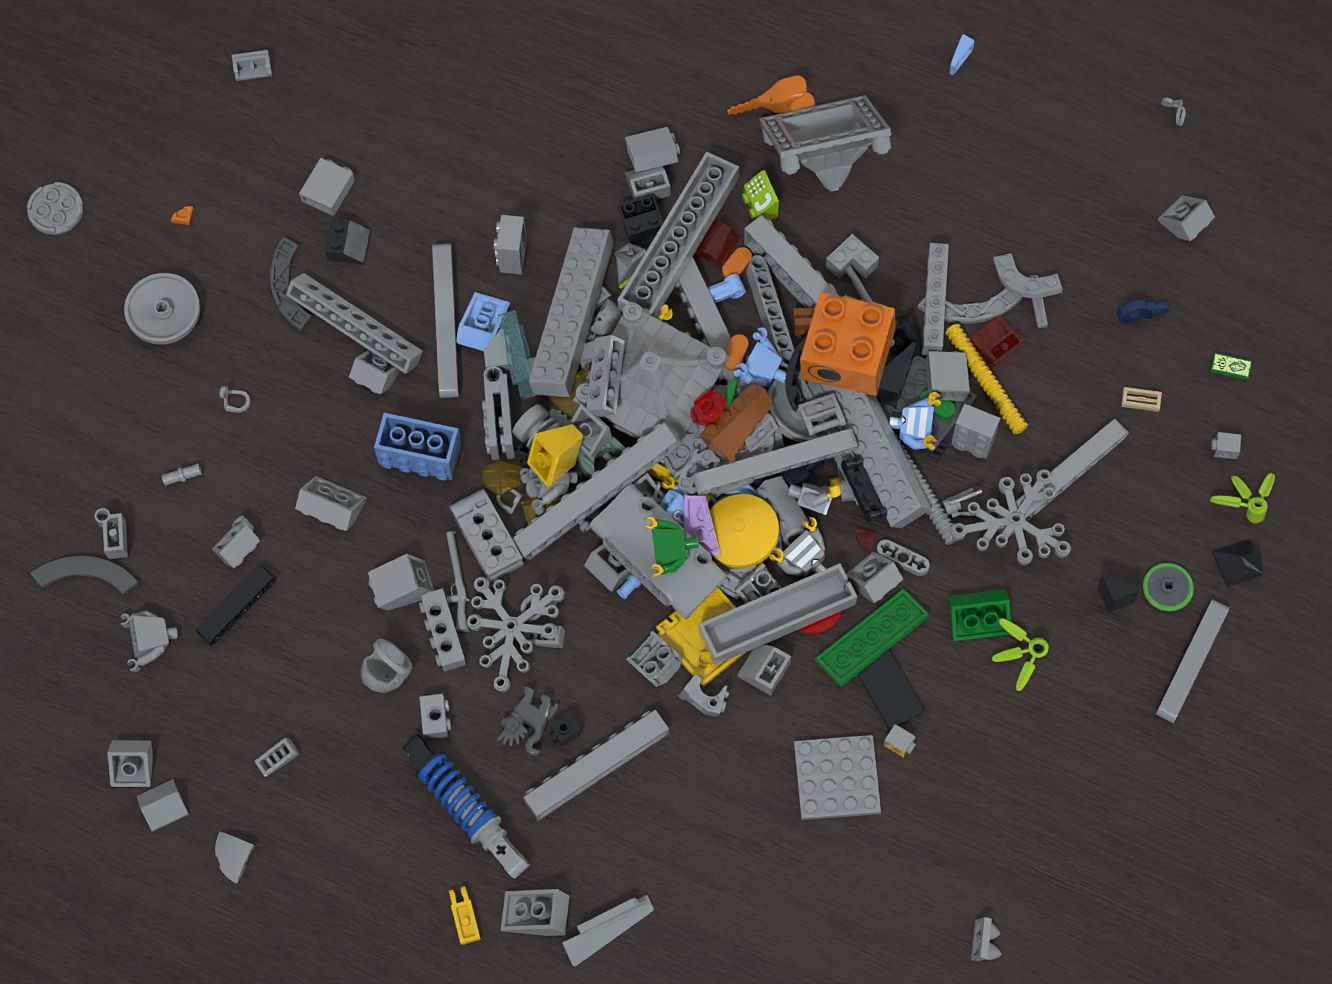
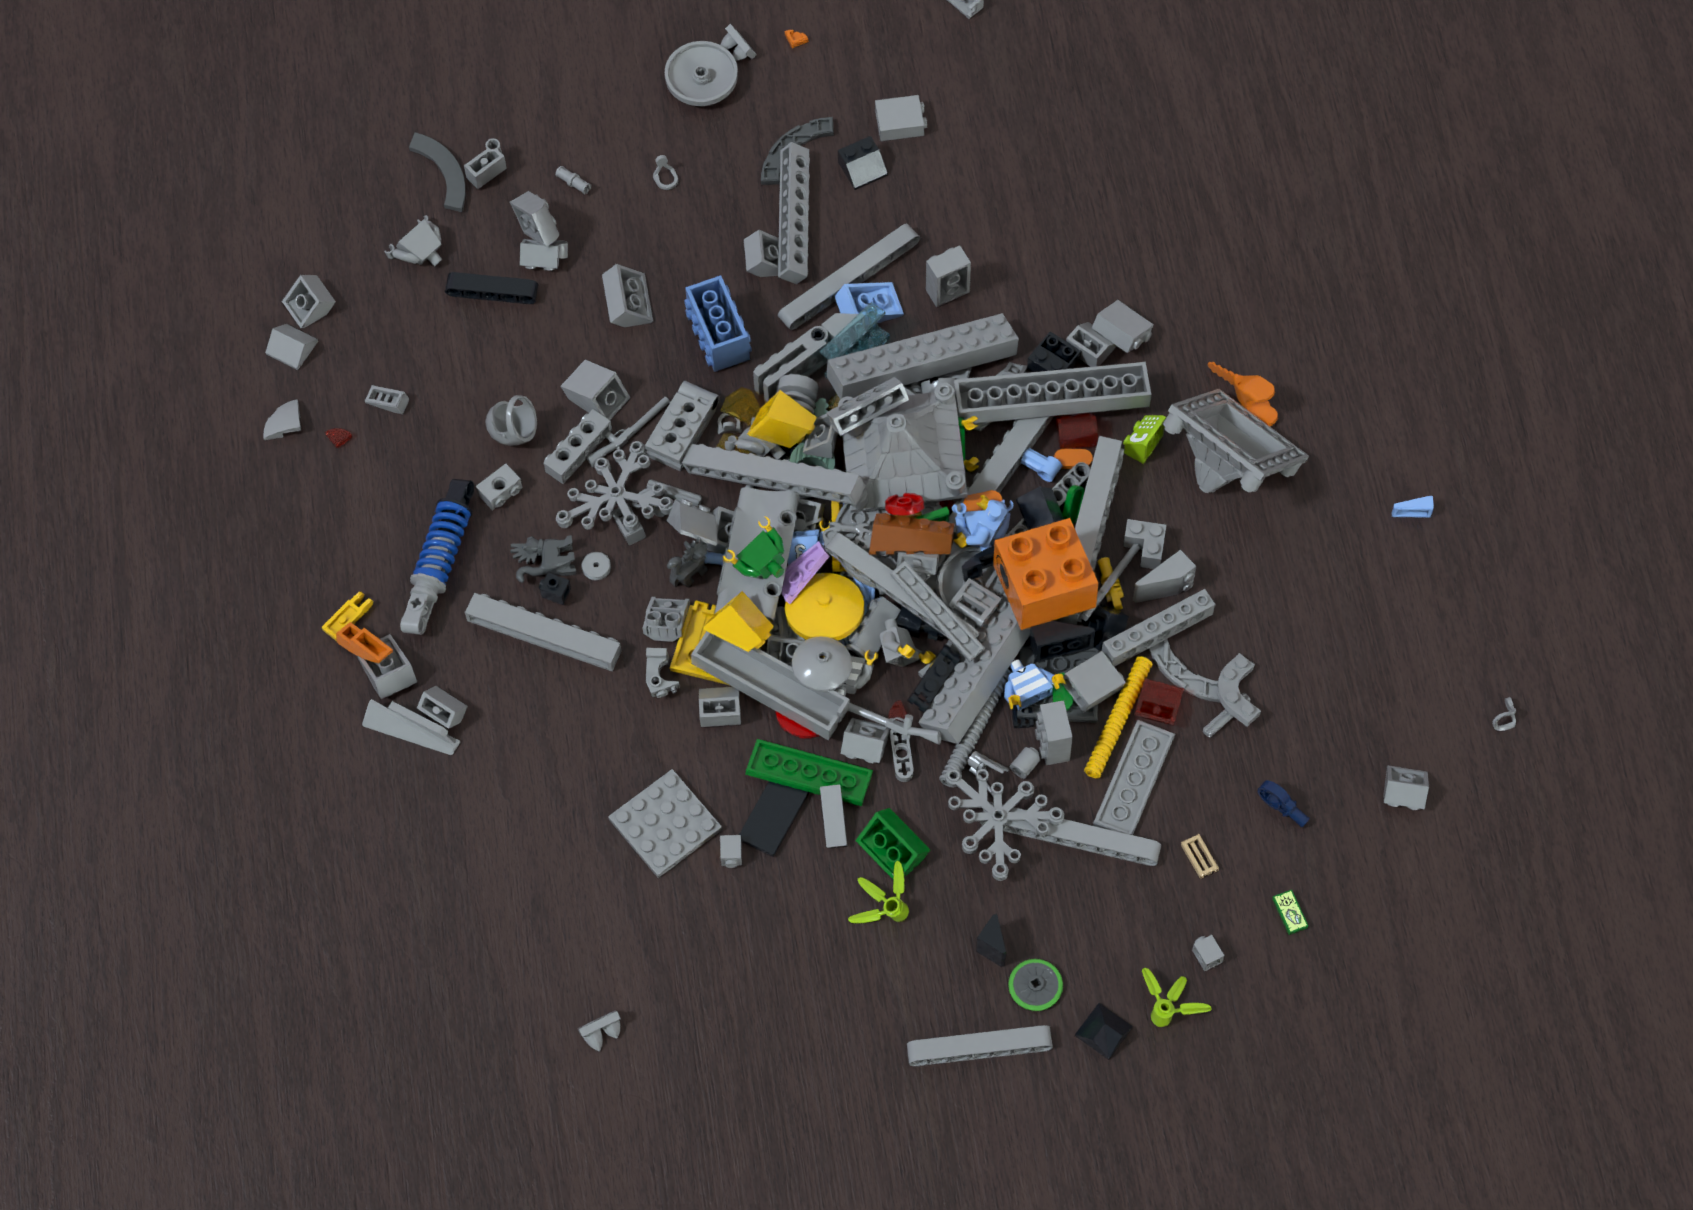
camera: 55 degrees right, 5 degrees down
(146, 263) = (733, 38): none -> light grey tile
(204, 525) = (535, 218): none -> light grey brick
(282, 819) = (338, 436): none -> clear red tile
(505, 917) = (362, 643): none -> orange slope
(543, 580) = (677, 493): none -> light grey axle
(567, 692) = (599, 572): none -> light grey piece
(592, 581) = (693, 521): none -> light grey slope
(610, 889) = (442, 707): none -> light grey brick
(624, 608) = (691, 563): none -> dark grey animal
(717, 603) = (740, 624): none -> yellow slope
(770, 356) = (987, 526): none -> light blue torso
(776, 315) = (1039, 507): none -> black slope
(781, 288) = (1073, 503): none -> green tile
(790, 573) = (819, 673): none -> light grey dish
(816, 446) = (937, 611): none -> light grey tile
(888, 540) = (899, 727): none -> light grey piece
(898, 256) = (1167, 579): none -> light grey slope
(925, 643) = (833, 816): none -> light grey tile
(977, 471) = (1025, 762): none -> light grey brick
(1044, 403) = (1134, 778): none -> light grey tile

